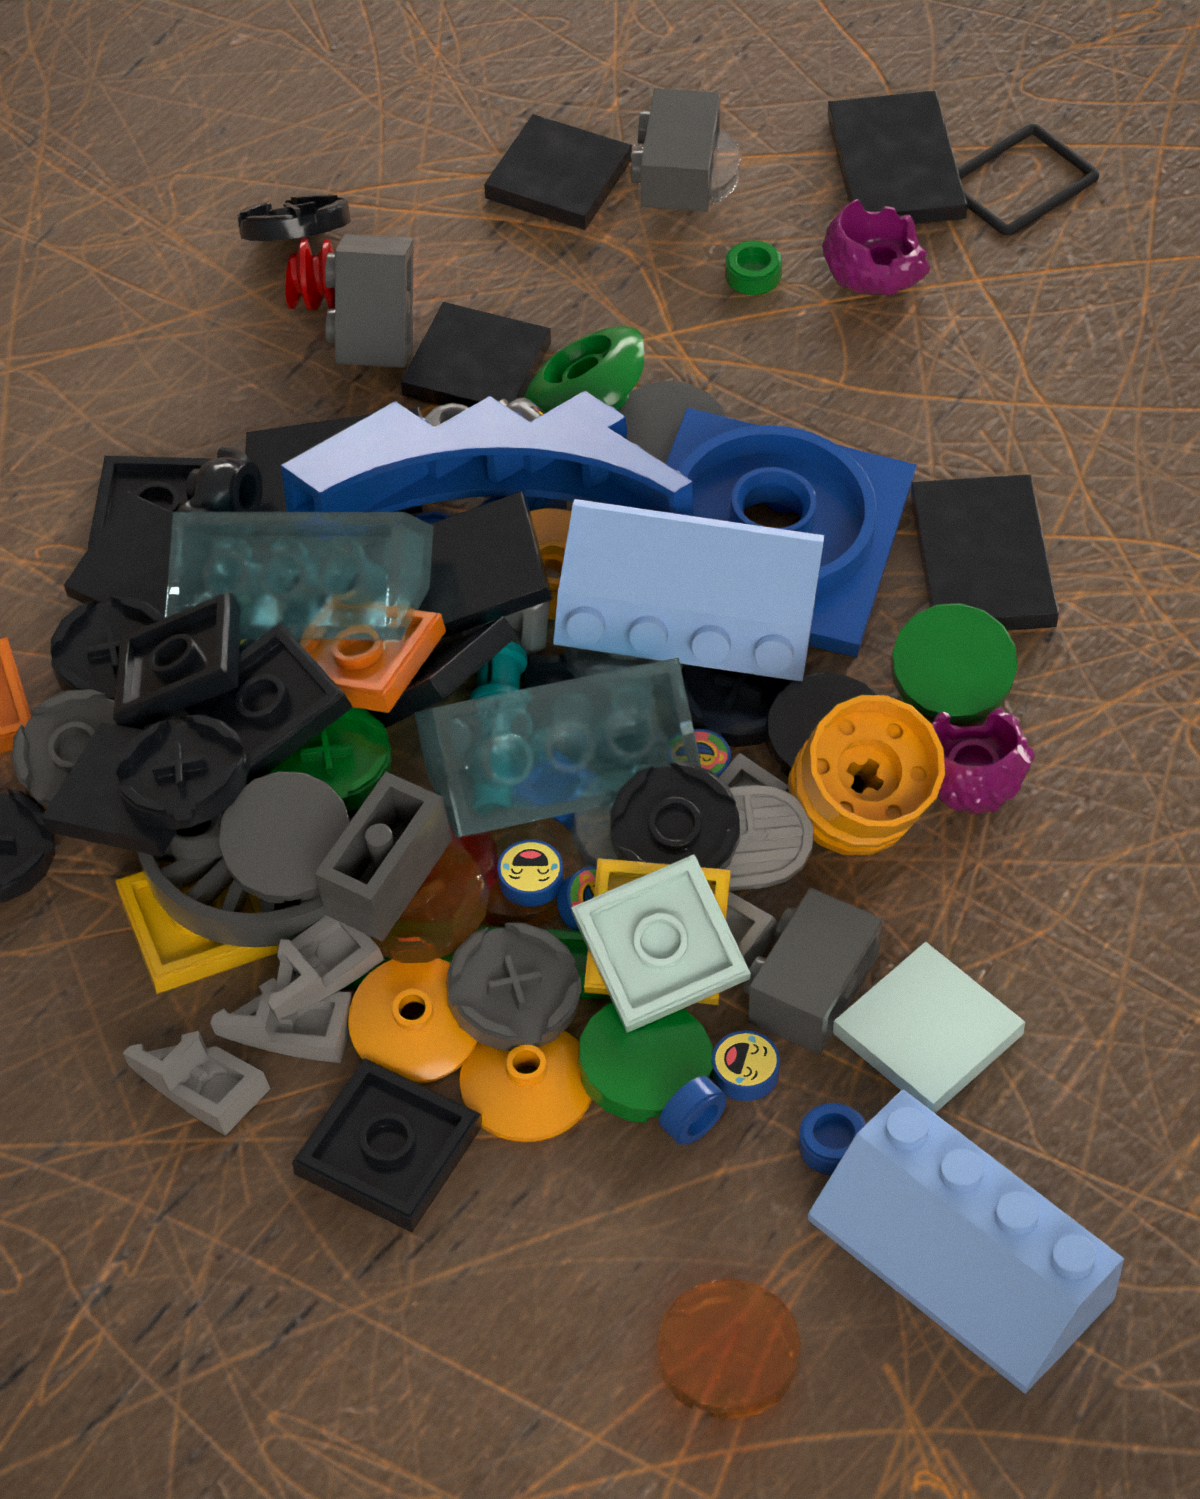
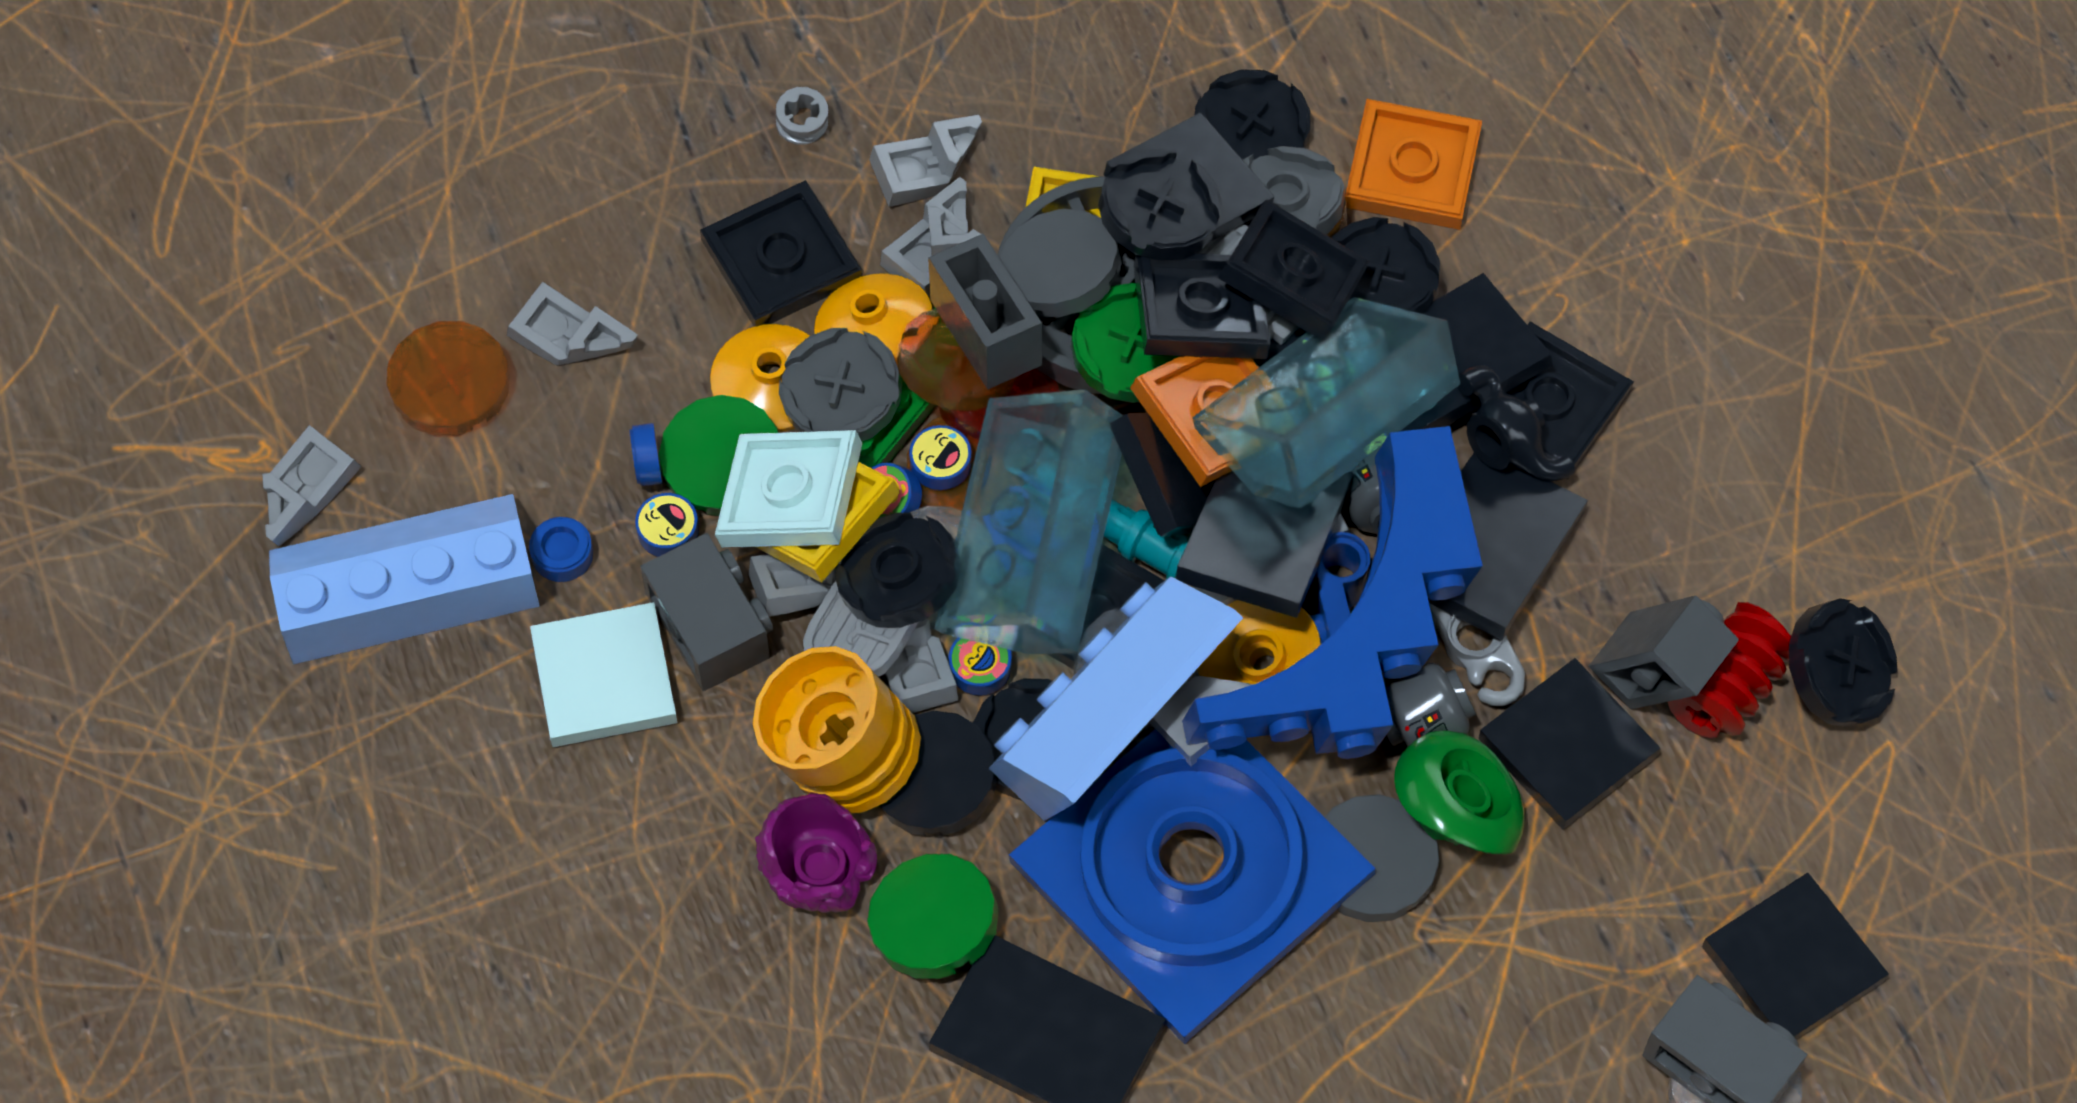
camera: 120 degrees right, 10 degrees up
(198, 1229) = (788, 107): none -> light grey bush
(601, 1277) = (565, 331): none -> light grey slope
(753, 267) = (1546, 1064): green tile -> none
(935, 1406) = (304, 483): none -> light grey slope

